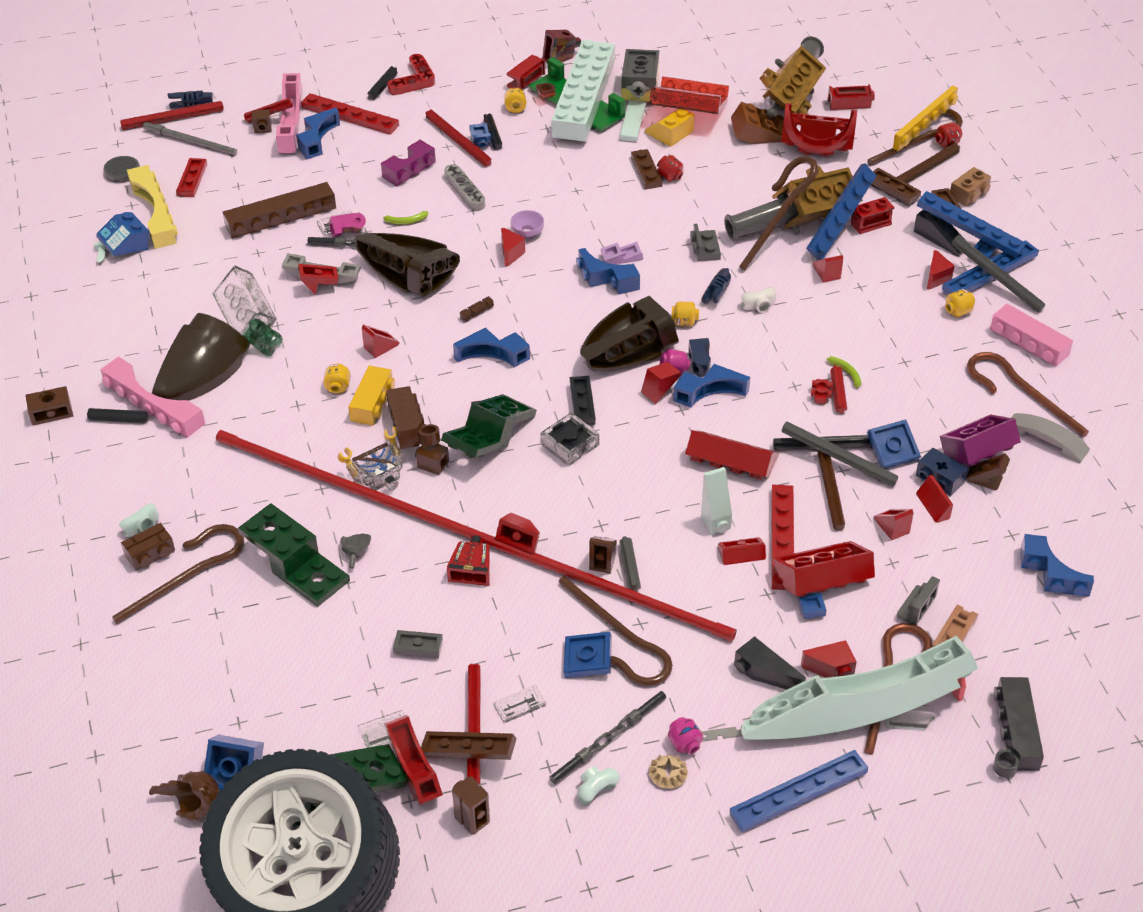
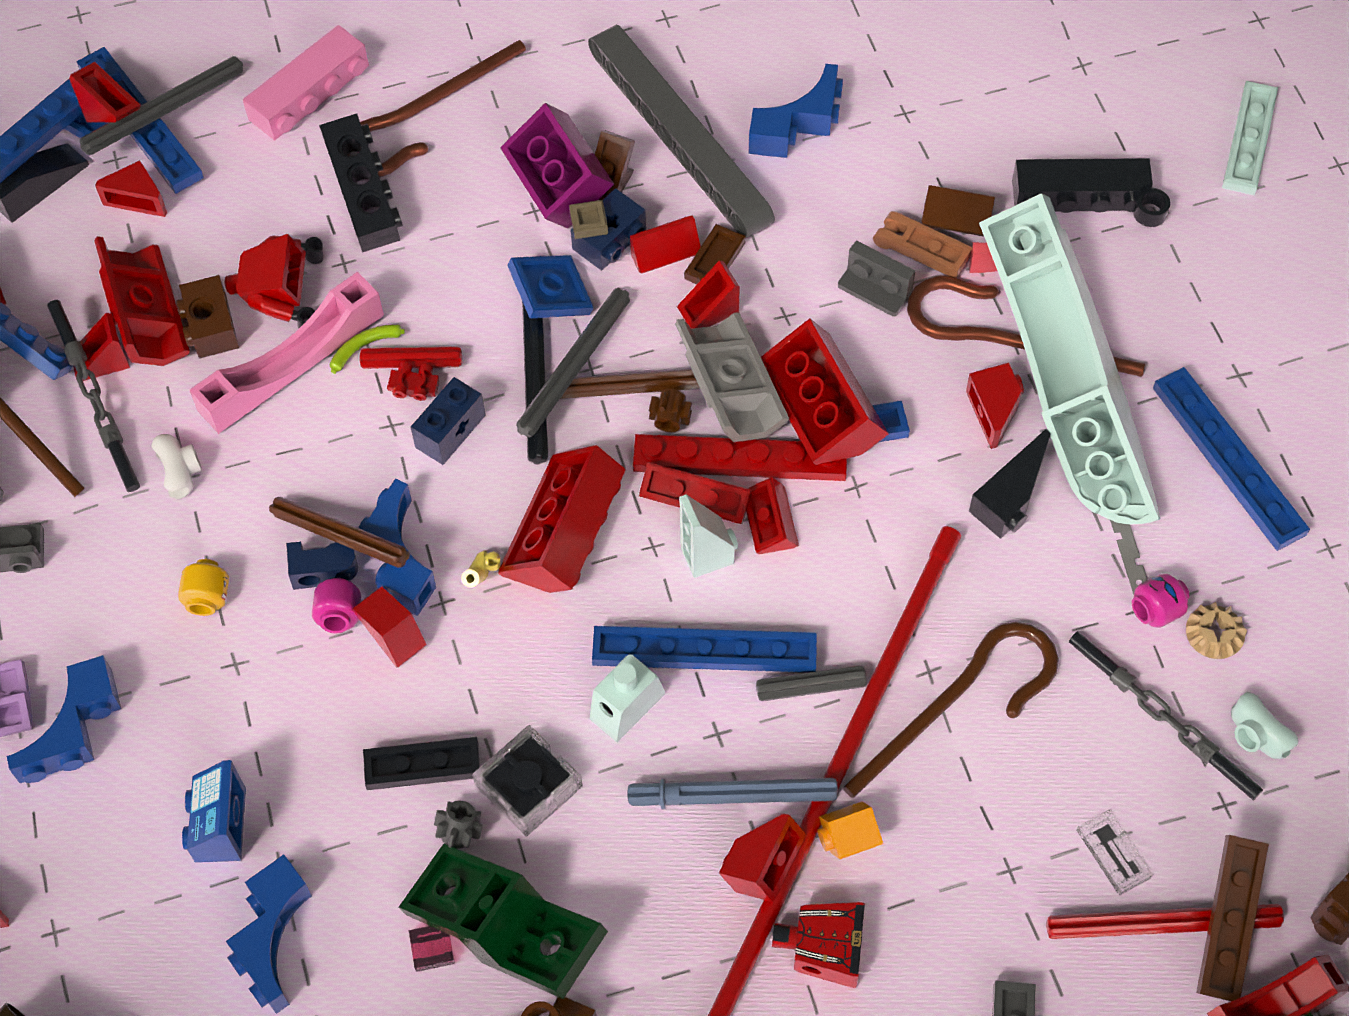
camera: 90 degrees left, 15 degrees up
(476, 308) = (142, 973): reddish brown axle -> none
(534, 572) = (849, 830): none -> light orange brick
(545, 412) = (458, 824): none -> dark grey gear
(553, 325) = (216, 815): none -> blue slope
(561, 499) = (731, 792): none -> sand blue axle
(587, 654) = (1011, 745): blue tile -> none
(602, 553) = (799, 718): reddish brown slope -> none
(619, 476) = (629, 693): none -> light aqua torso
(629, 336) = (267, 675): dark brown panel -> none
(650, 516) = (706, 648): none -> blue plate
(698, 420) = (480, 568): none -> light yellow arm
(714, 355) = (339, 532): none -> reddish brown axle
(717, 286) = (133, 530): dark blue hinge -> none
(754, 512) = (668, 484): none -> red tile
(776, 273) = (110, 433): none -> piece
(793, 402) = (448, 420): none -> dark blue brick
(809, 498) = (670, 410): none -> reddish brown gear
(832, 522) = (733, 378): none -> light grey piece
(855, 304) = (209, 334): none -> reddish brown brick
(859, 275) = (142, 304): none -> red piece
(862, 355) = (238, 390): none -> bright pink arch
(884, 325) = (273, 276): none -> red torso
(932, 527) = (719, 245): none -> reddish brown tile
(939, 453) = (588, 219): none -> dark tan tile
(955, 356) = (349, 136): none -> black brick
(960, 303) = (221, 167): yellow head -> none
(985, 647) = (956, 210): none -> reddish brown panel
(993, 241) = (101, 95): none -> red slope
(1027, 507) = (681, 131): none -> dark grey beam
(1053, 433) = (520, 90): light grey slope -> none
(1089, 840) = (1250, 138): none -> light aqua tile

